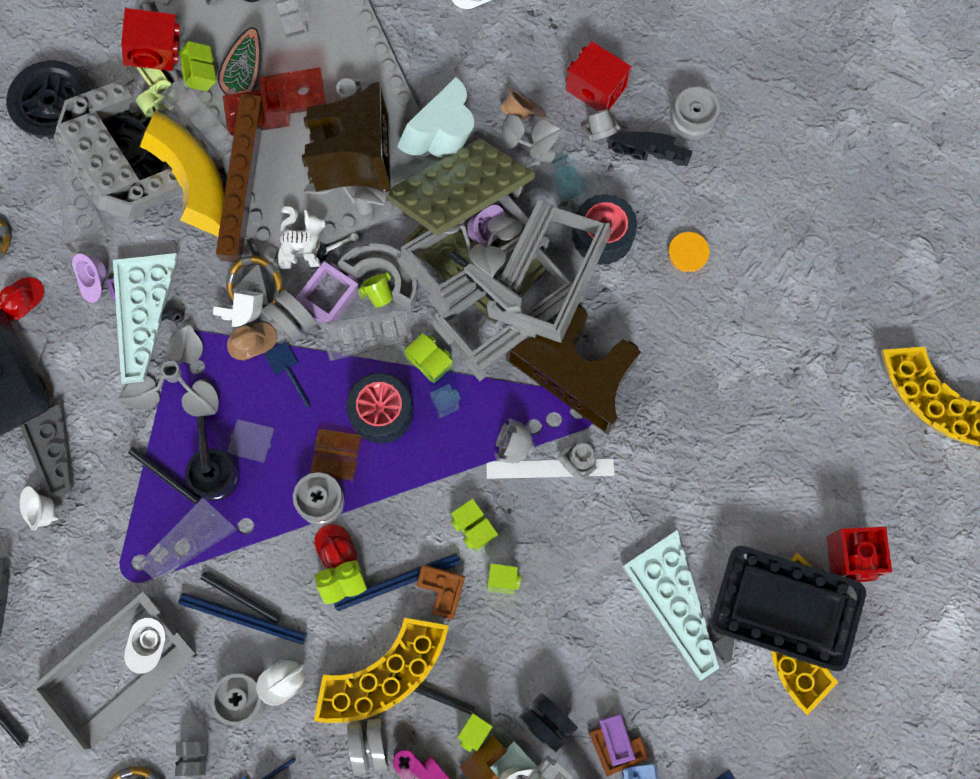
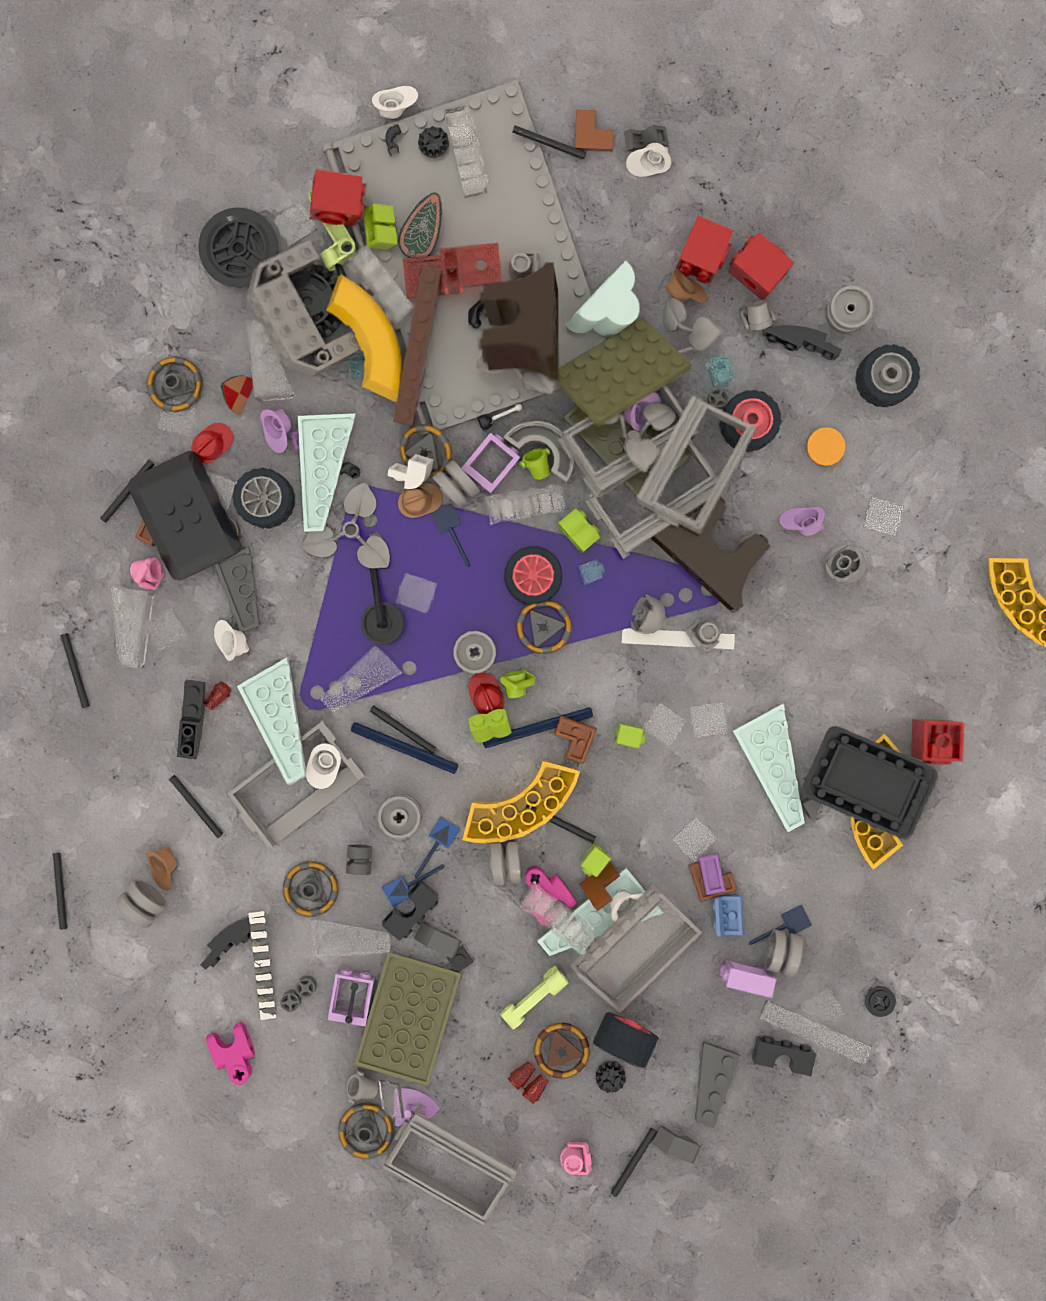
camera: 10 degrees right, 15 degrees up
(22, 574) = (218, 694): none -> clear red cone
(46, 241) = (236, 392): none -> shield
(75, 348) = (263, 498): none -> wheel
(87, 587) = (274, 710): none -> light aqua wing
(165, 476) = (340, 618): black bar -> none
(175, 208) = (356, 366): none -> clear light blue slope
(280, 682) = (435, 805): white piece -> none
(293, 719) = (442, 833): none -> piece
(299, 241) = (469, 412): white animal -> none
(300, 143) = (473, 314): none -> black arm
(336, 454) = (491, 612): clear orange slope -> none
(369, 530) = (515, 682): none -> lime piece
(396, 464) = (544, 627): none -> piece
(473, 525) = (607, 686): lime piece -> none
(498, 291) = (647, 483): light grey sword -> none
(538, 66) = (705, 250): none -> red brick
(548, 722) = (653, 859): black wheel -> none
(675, 328) = (805, 520): none -> lavender piece
(727, 369) = (846, 564): none -> light grey cylinder
(744, 173) = (887, 375): none -> wheel

